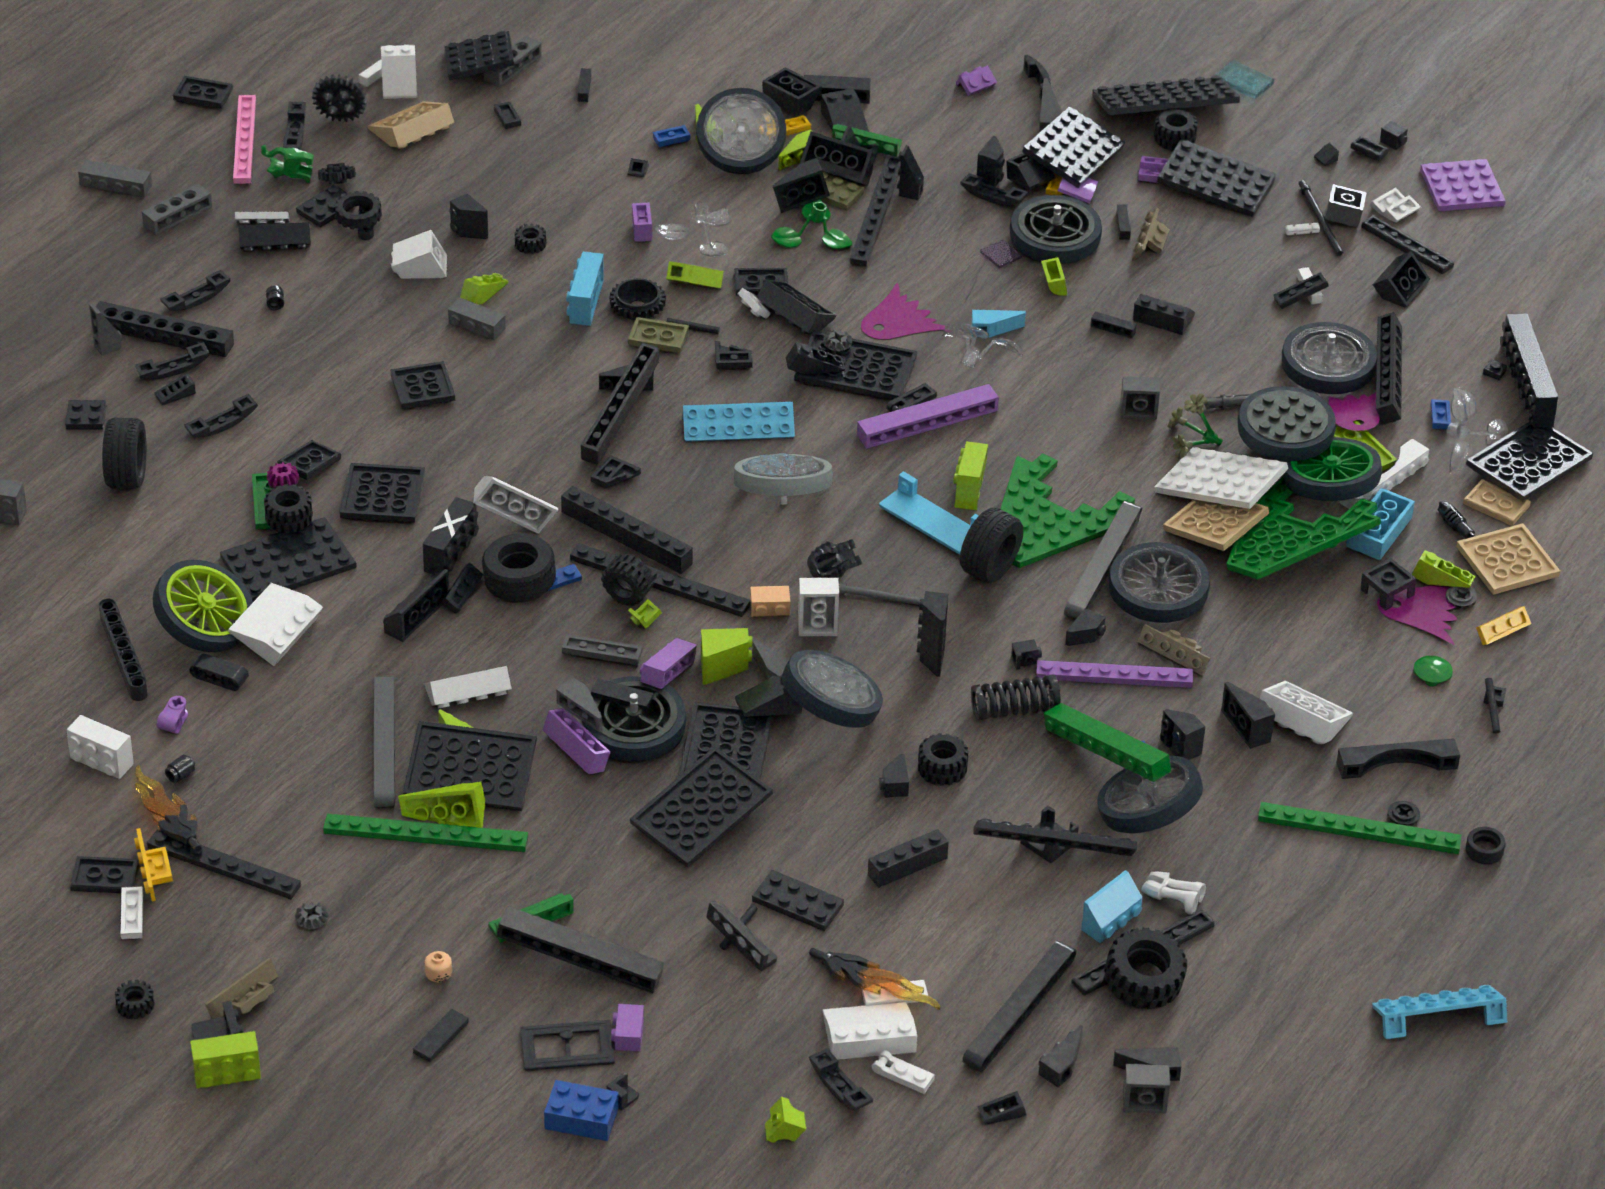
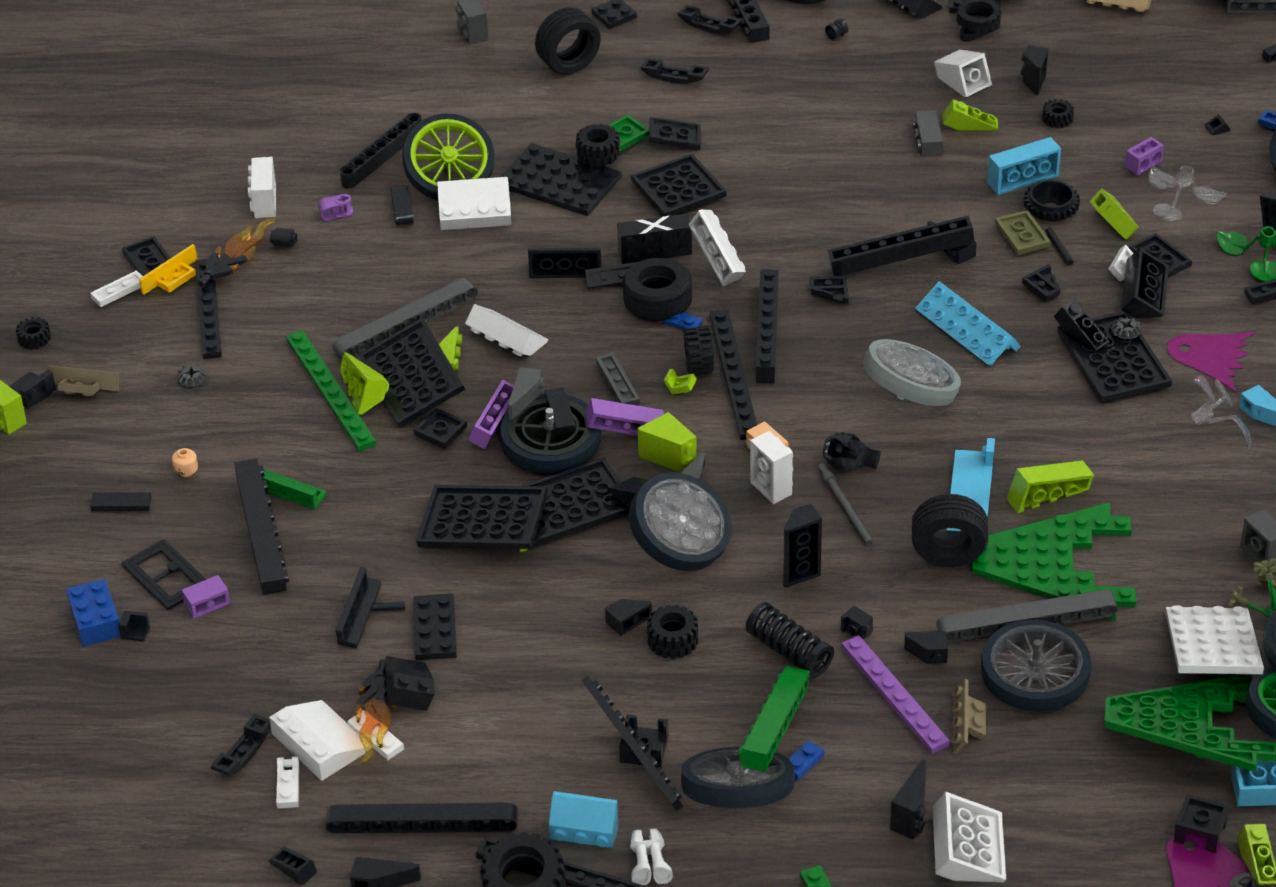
camera: 60 degrees right, 0 degrees up
(181, 388) = (685, 38): black slope -> none
(282, 474) = (632, 126): magenta gear -> none
(422, 385) = (822, 145): black plate -> none
(507, 115) = (1195, 32): black tile -> none
(553, 784) = (440, 428): none -> black plate
(784, 1122) = (167, 733): lime brick -> none
(861, 941) = (408, 683): none -> black slope
(908, 858) = (535, 666): black brick -> none
(913, 397) = (1107, 408): black plate -> none
(927, 416) = (1097, 426): medium lavender brick -> none
(1182, 733) = (843, 769): black slope -> none
(1214, 523) = (1151, 665): tan plate -> none

